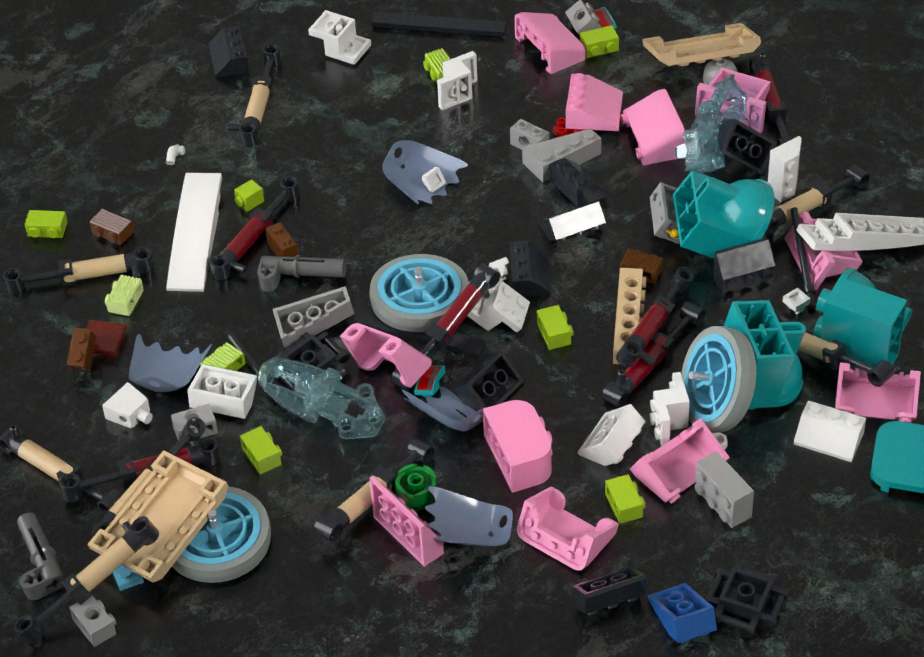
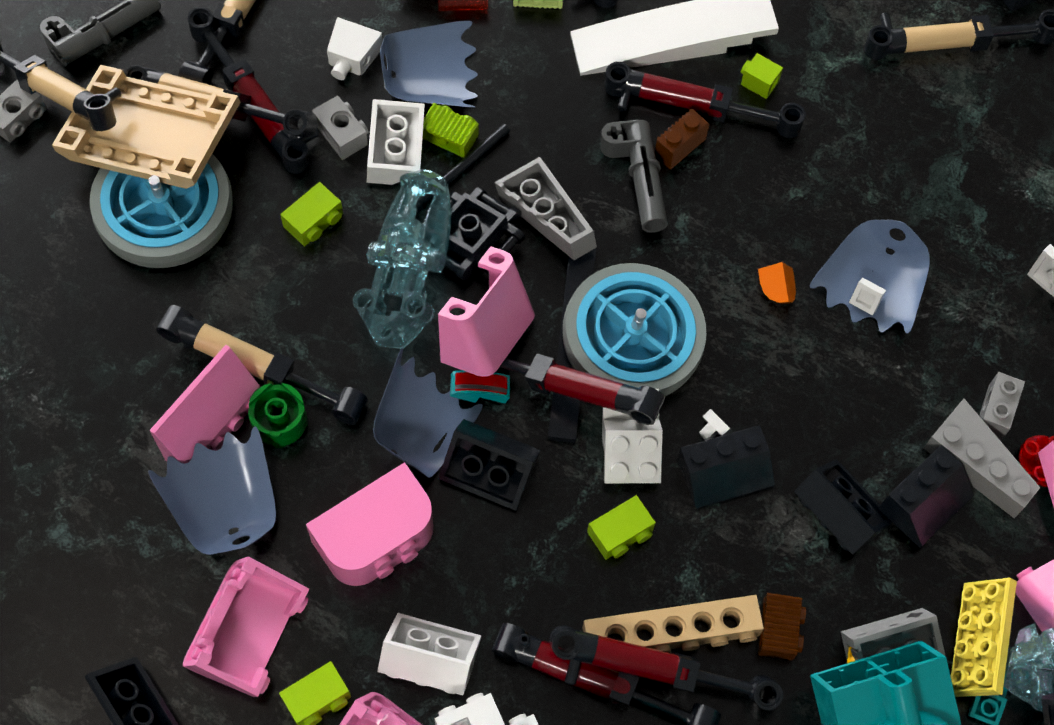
camera: 70 degrees right, 20 degrees up
(408, 219) = (778, 282): none -> orange brick
(663, 168) = (983, 637): none -> light yellow tile

